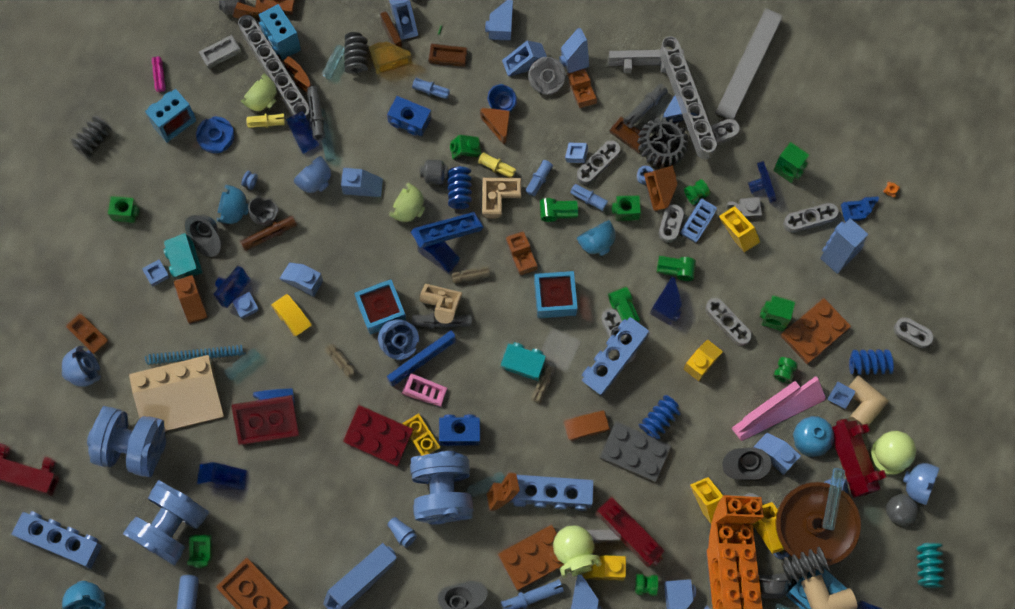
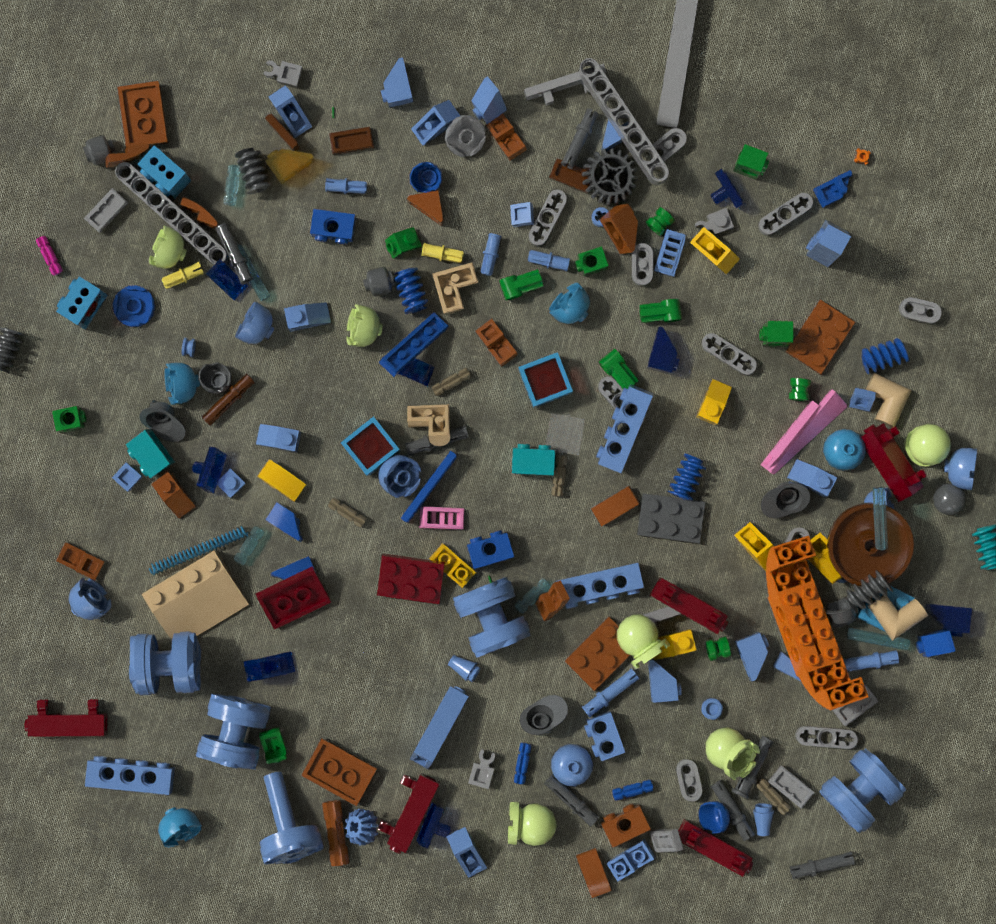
camera: 15 degrees left, 15 degrees up
(282, 351) = (285, 521): none -> blue slope

